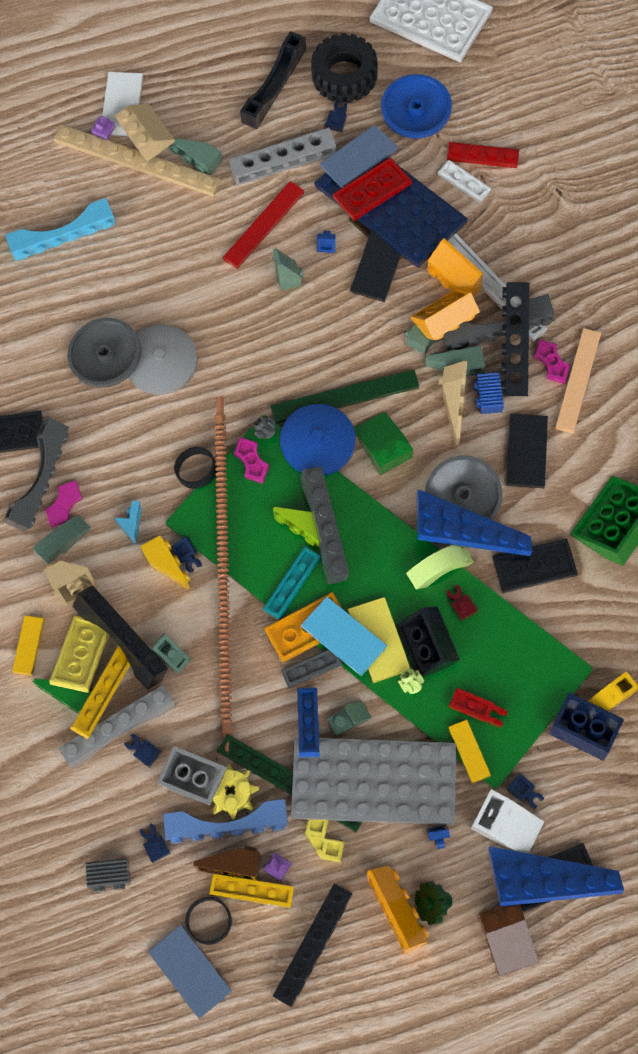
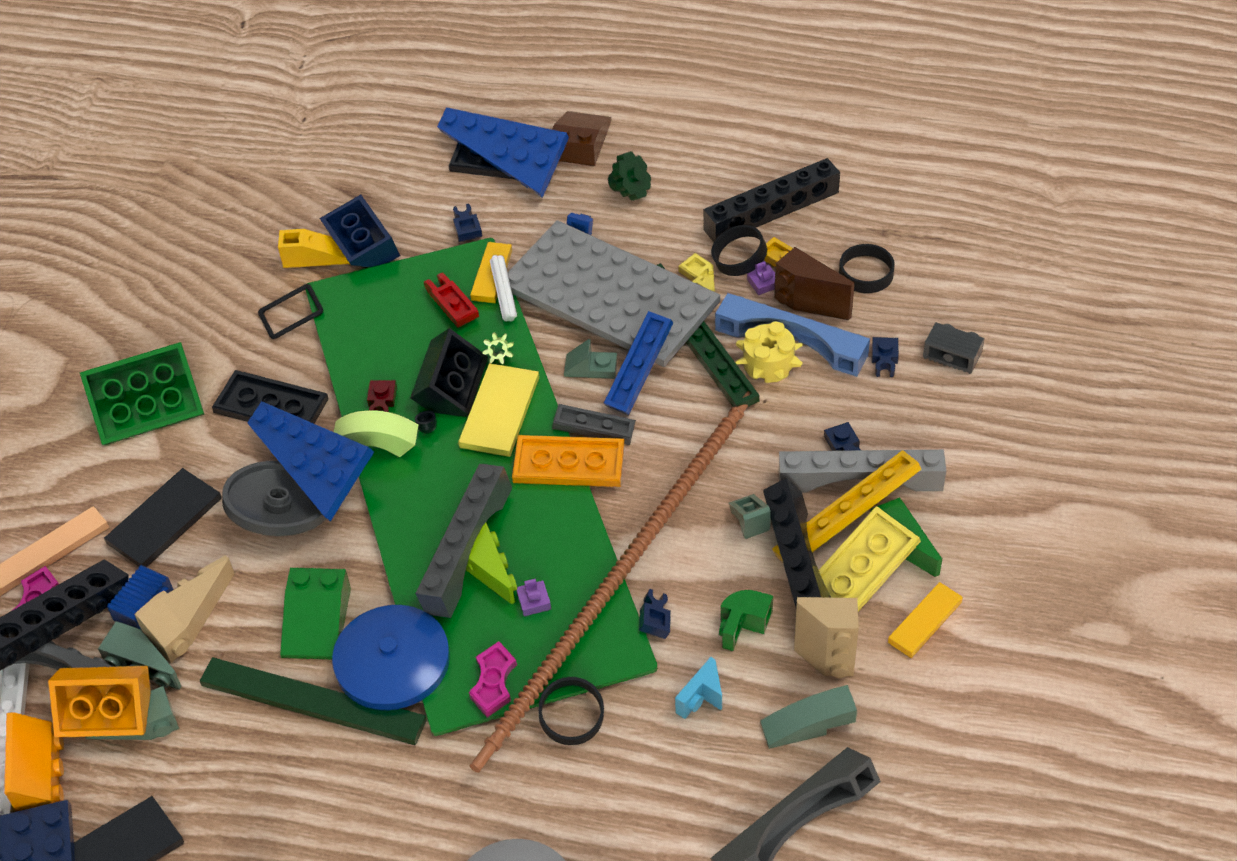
camera: 150 degrees left, 20 degrees down
(68, 496) = (768, 777): dark pink tile -> none
(135, 586) = (744, 610): none -> green brick
(160, 559) = (691, 620): yellow slope -> none
(190, 971) = (912, 241): sand blue tile -> none
(191, 776) = (803, 373): light grey slope -> none
(263, 521) = (533, 597): none -> medium lavender tile
(264, 427) = (446, 708): dark grey gear -> none
(292, 583) = (550, 514): teal tile -> none
(293, 891) = (731, 235): none -> black tyre
(344, 636) = (535, 422): medium azure tile -> none
(396, 908) = (668, 183): light orange slope -> none
(420, 601) = (426, 421): none -> black hinge
(446, 735) = (503, 288): none -> white axle
(507, 823) = (509, 208): white slope -> none
(569, 633) = (298, 323): none -> black piece

